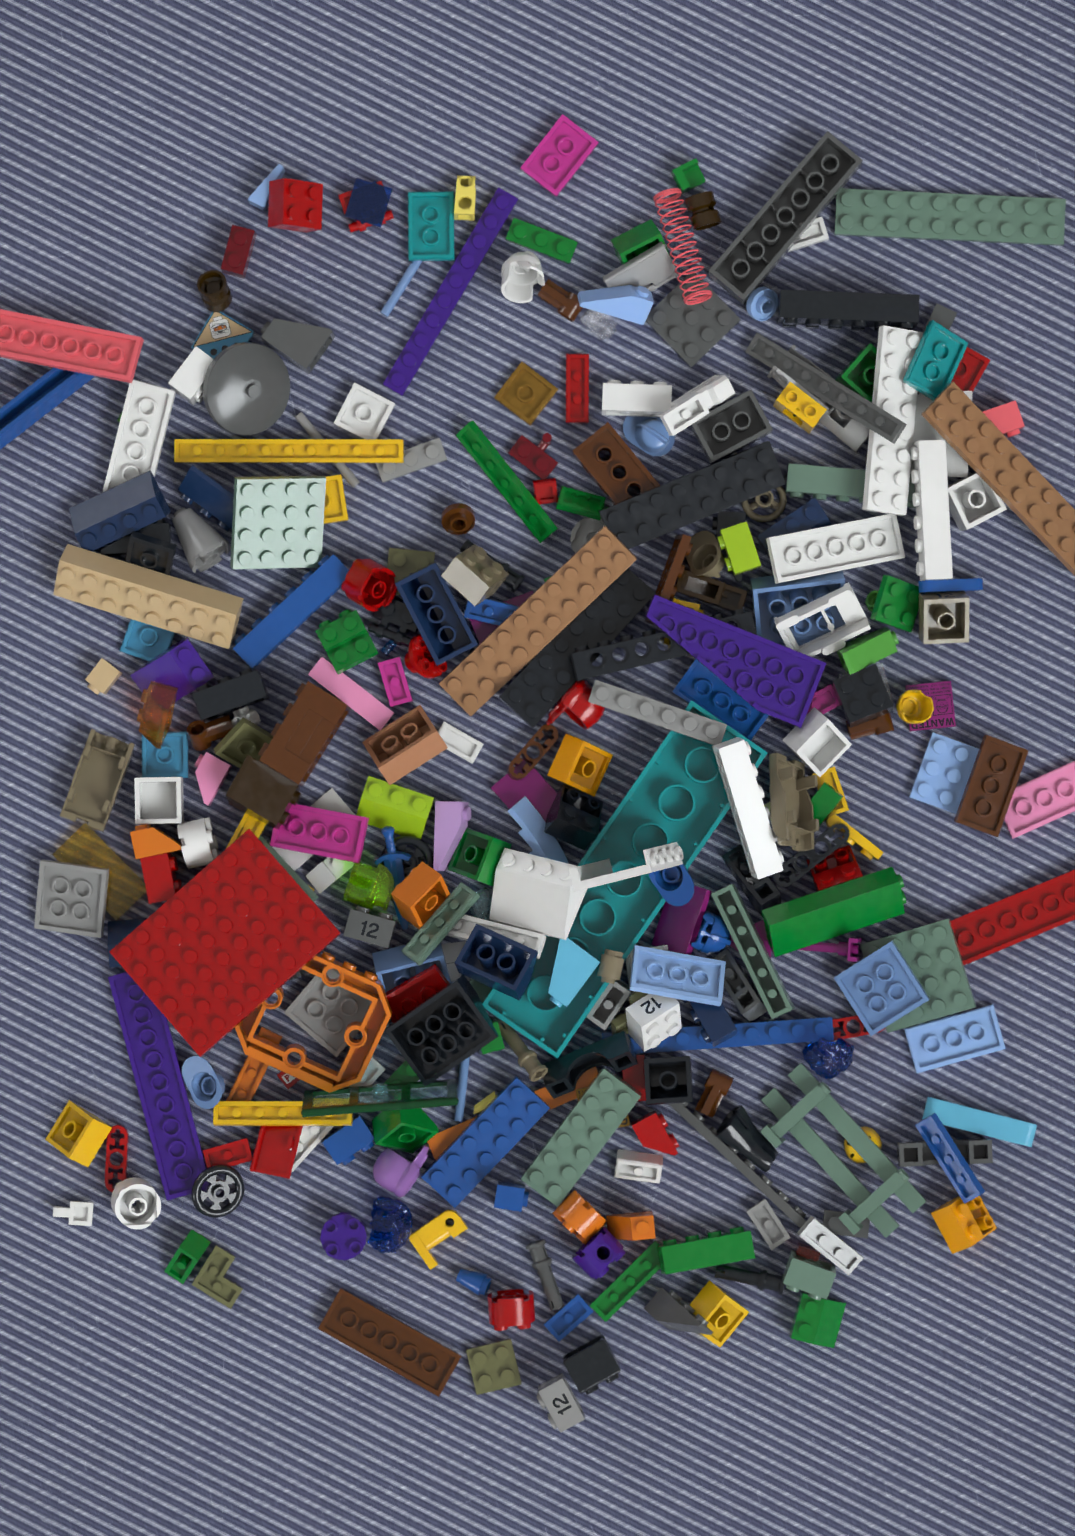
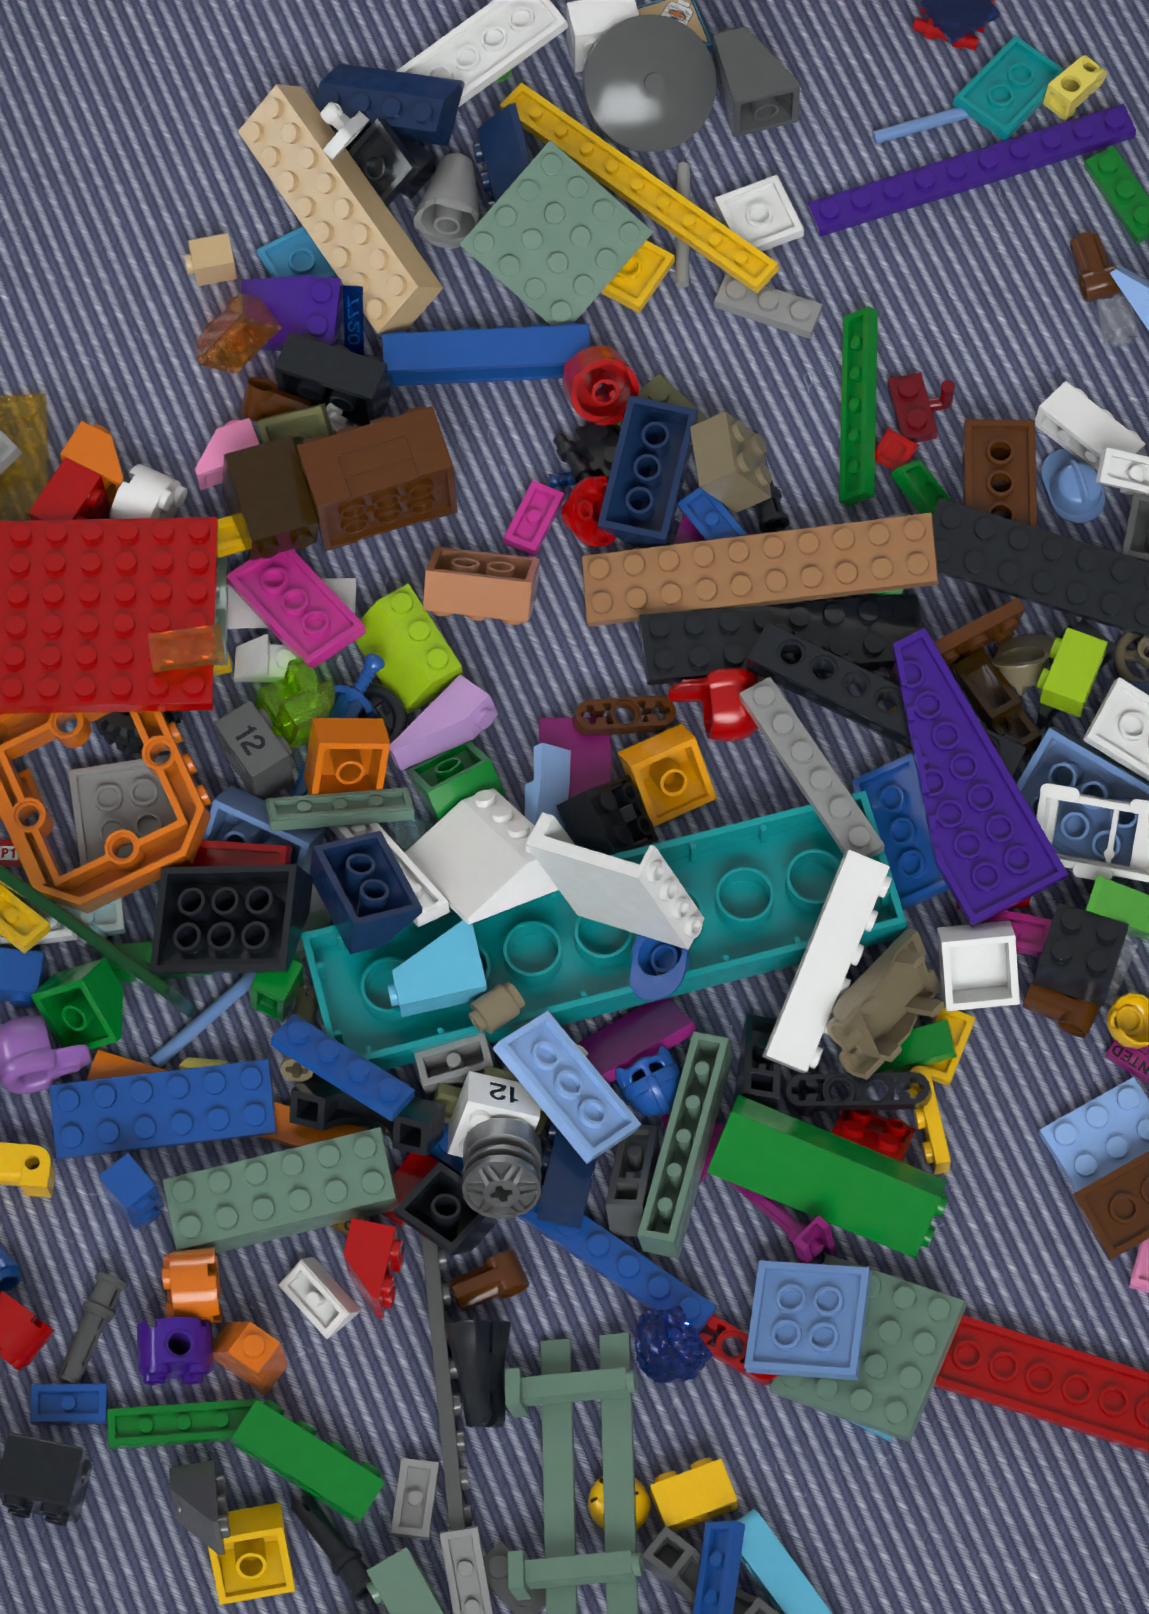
camera: 40 degrees right, 20 degrees down
(97, 780) = (100, 357): dark tan piece -> none
(120, 554) = (346, 127): none -> white piece
(159, 800) = (150, 427): white piece -> none
(168, 761) = (201, 398): dark azure tile -> none
(209, 651) = (353, 319): none -> clear blue sticker
(305, 917) = (186, 648): none -> clear orange plate
(346, 641) = (518, 430): green plate -> none
(351, 694) = (473, 492): bright pink tile -> none
(458, 519) = (766, 400): reddish brown plate -> none
(460, 742) = (547, 643): white tile -> none
(519, 275) = (1066, 204): white helmet -> none
(526, 393) = (965, 336): pearl gold tile -> none
(563, 1057) = (342, 1067): none -> blue plate
(577, 388) = (1030, 375): red tile -> none
(681, 1042) = (501, 1168): none -> flat silver wheel
(807, 1251) = (433, 1574): clear red tile -> none
(895, 1114) = (693, 1495): none -> yellow brick
(954, 1038) = (849, 1469): light blue tile -> none

